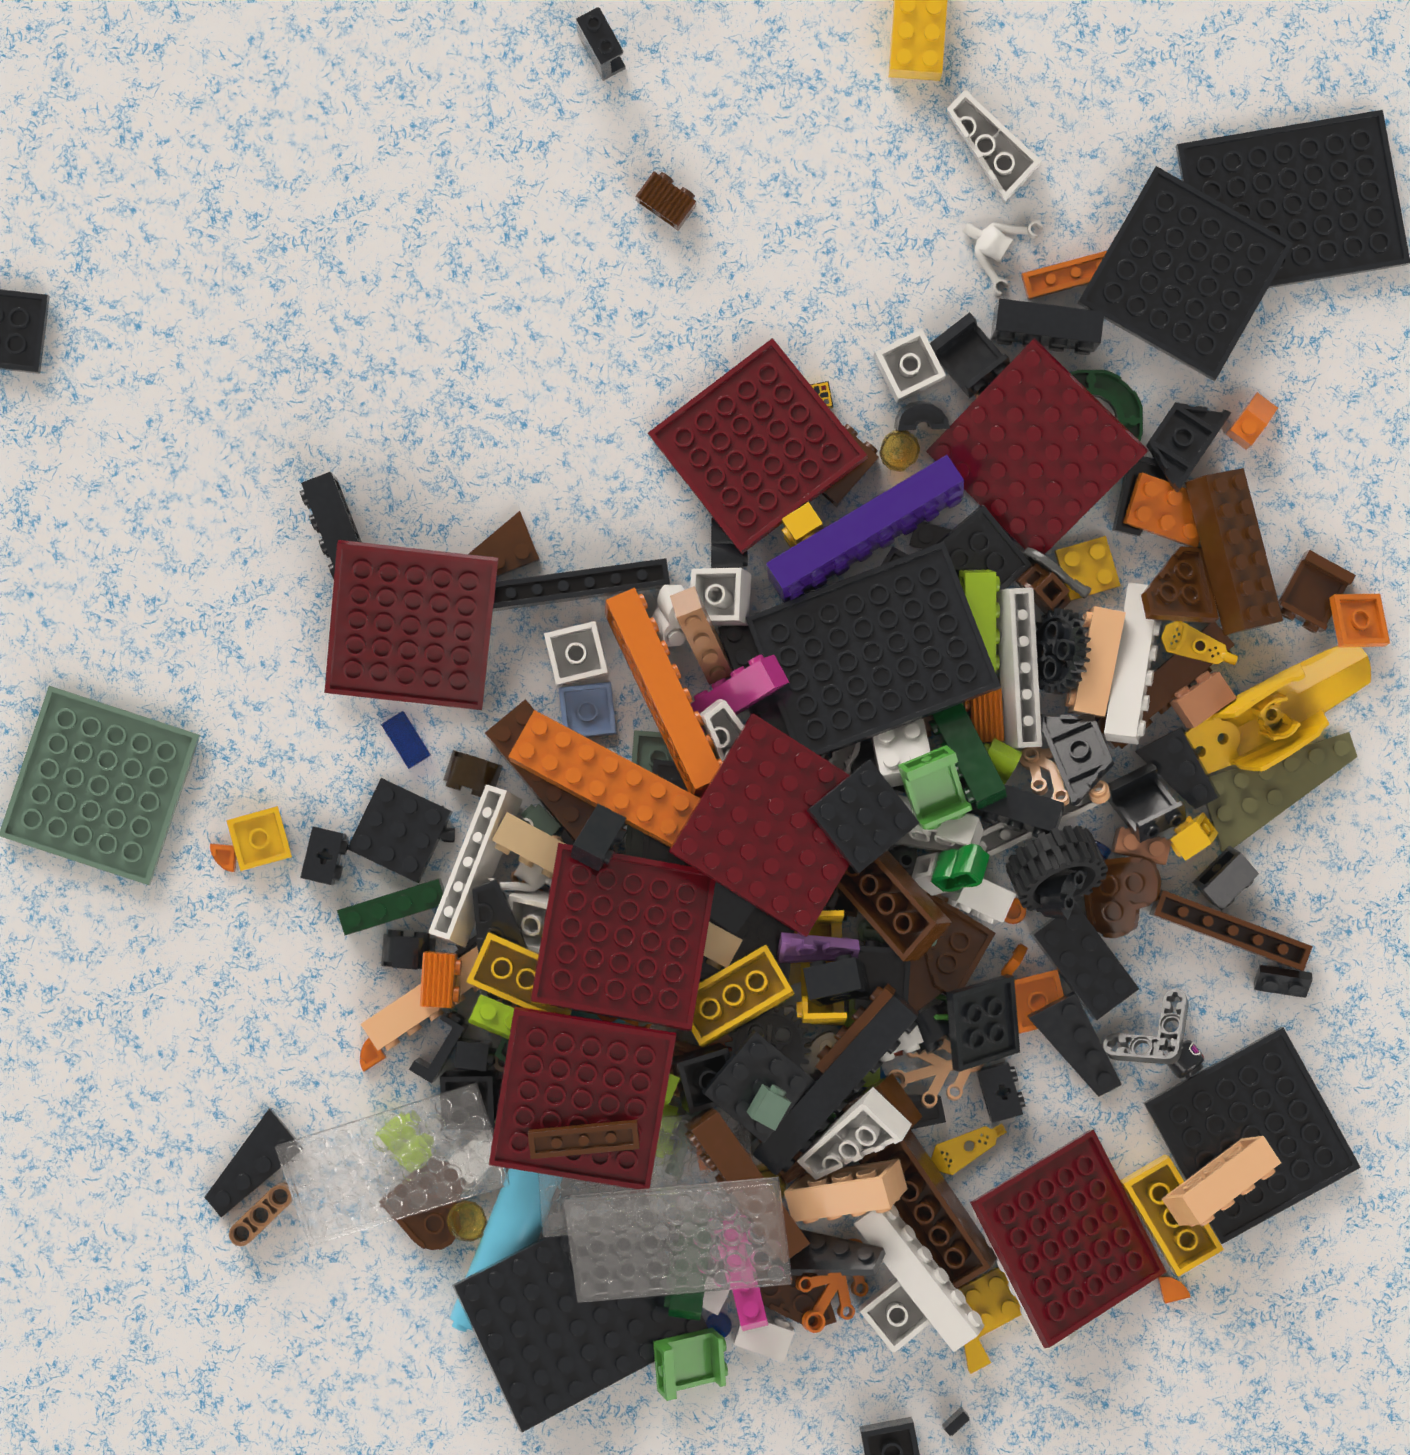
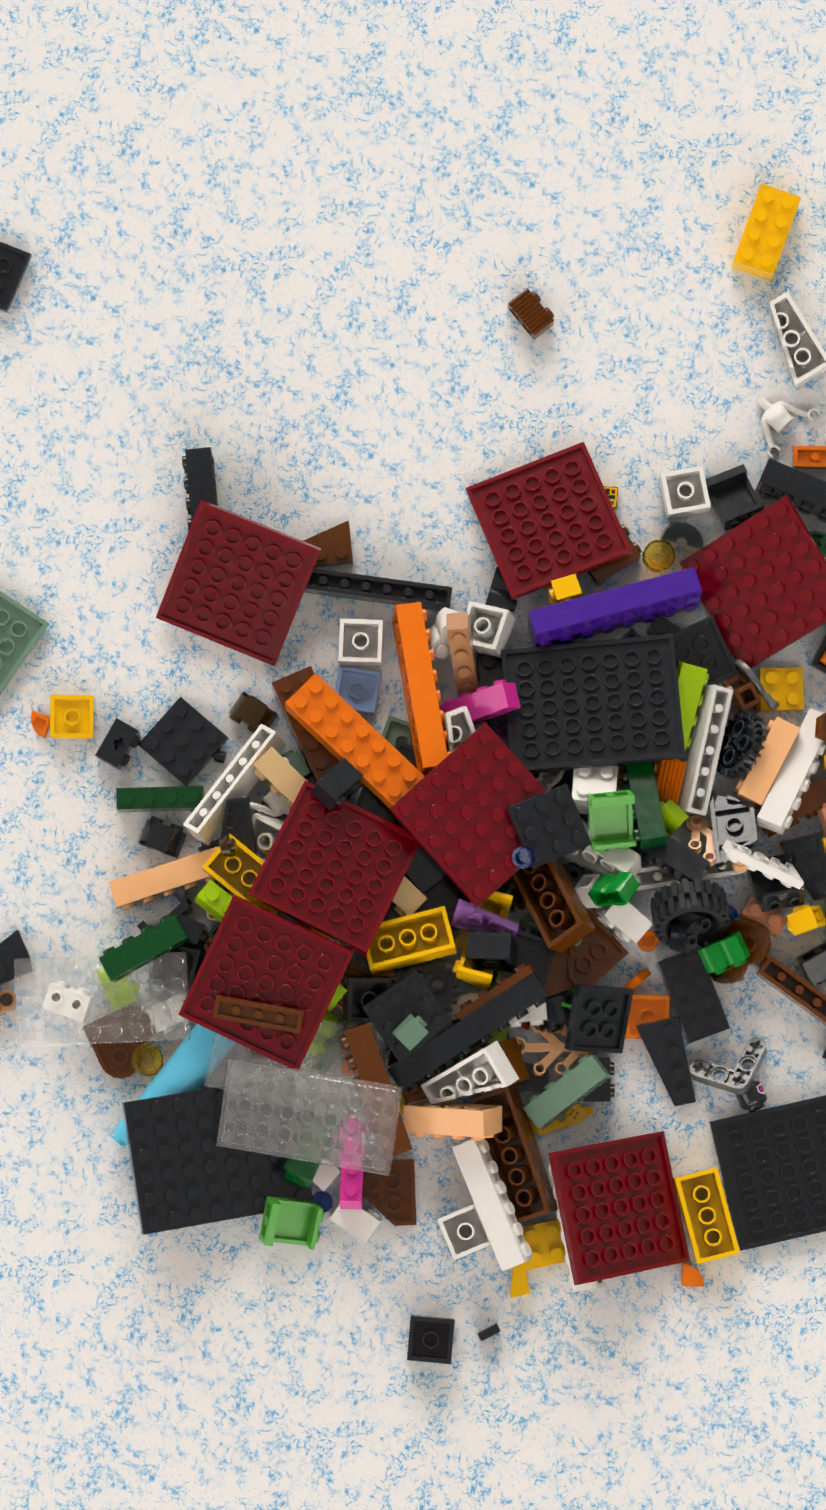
camera: 20 degrees right, 5 degrees down
(354, 1180) = (69, 1001): none -> white brick
(370, 1055) = (109, 910): orange tile -> none
(406, 739) = (208, 673): clear blue tile -> none
(425, 1095) = (144, 948): none -> dark green brick
(439, 979) = (181, 863): orange brick -> none
(490, 950) = (228, 846): none -> dark brown plate
(600, 43) = (513, 179): black panel -> none
(835, 1283) = (425, 1193): orange plant -> none
(836, 1255) = (428, 1167): black wing -> none
(844, 863) = (523, 857): none -> clear blue tile
(969, 1119) = (567, 1091): none -> sand green brick
(1108, 903) = (723, 953): none -> green brick
(1122, 787) = (758, 861): none -> white wing
(1222, 1181) = (752, 1197): light nougat brick -> none

